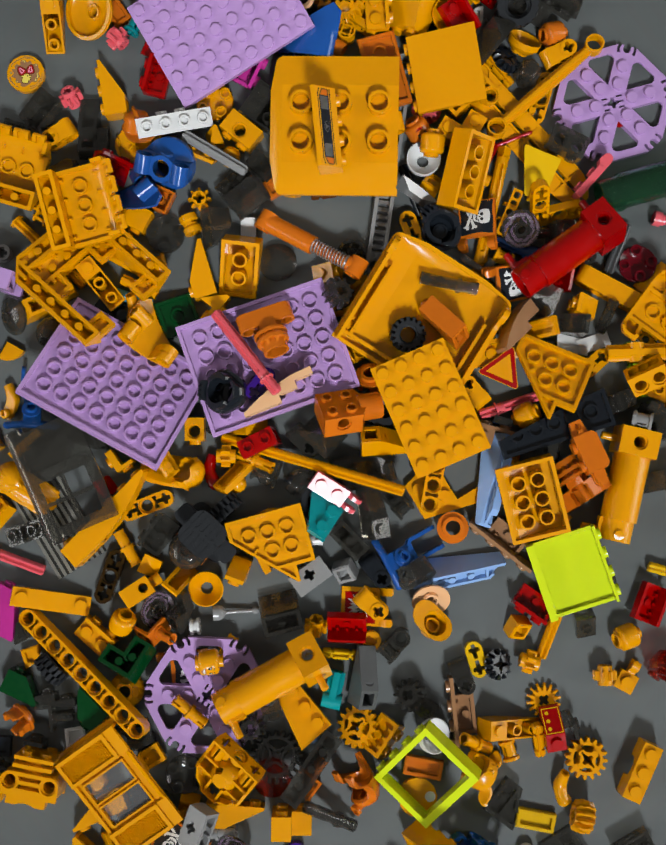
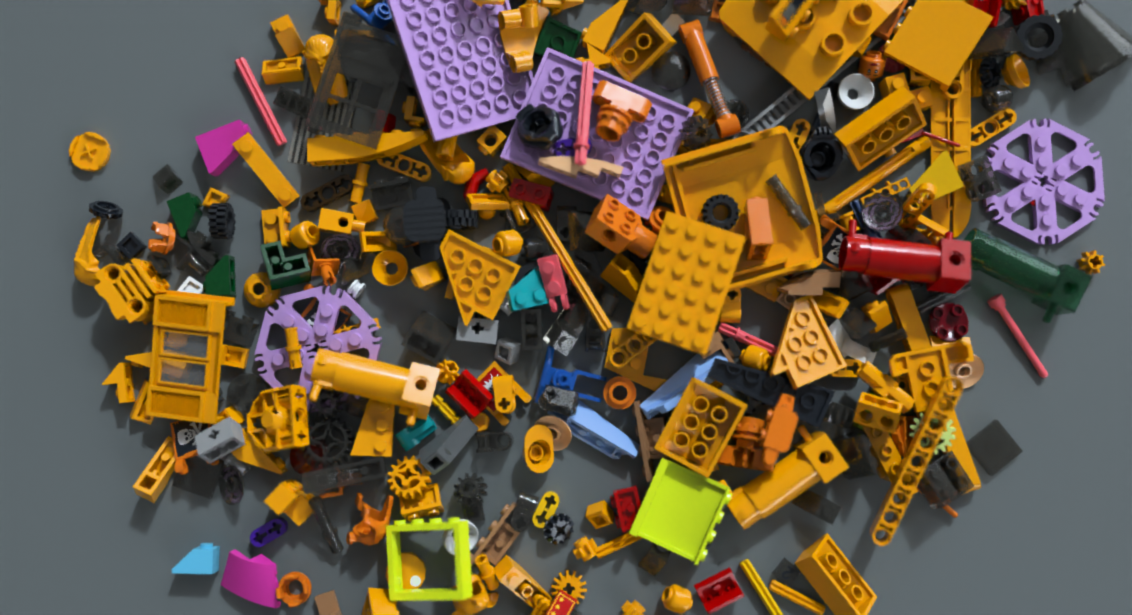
camera: 45 degrees right, 0 degrees up
(21, 634) = (223, 174): clear smoke slope -> none
(93, 674) = (246, 254): light orange beam -> none
(208, 662) = (341, 323): light orange head -> none
(219, 612) = (384, 295): light grey hinge -> none
(275, 494) = (507, 243): none -> light orange head
(373, 567) = (531, 368): black piece -> none
(423, 767) = (430, 554): orange tile -> none
(431, 184) = (843, 117): light orange slope -> none
(432, 143) = (873, 84): light orange head -> none
(479, 225) = (852, 181): flag -> none
(502, 369) = (769, 307): piece -> none
(509, 751) = (507, 602): light orange bush -> none
(546, 85) = (1004, 120): light orange piece -> none
(552, 33) = (1045, 85): orange head -> none
(555, 55) = (1032, 104): light orange piece -> none
(592, 175) = (976, 222): coral hinge -> none
(642, 420) = (842, 443): light grey bush -> none

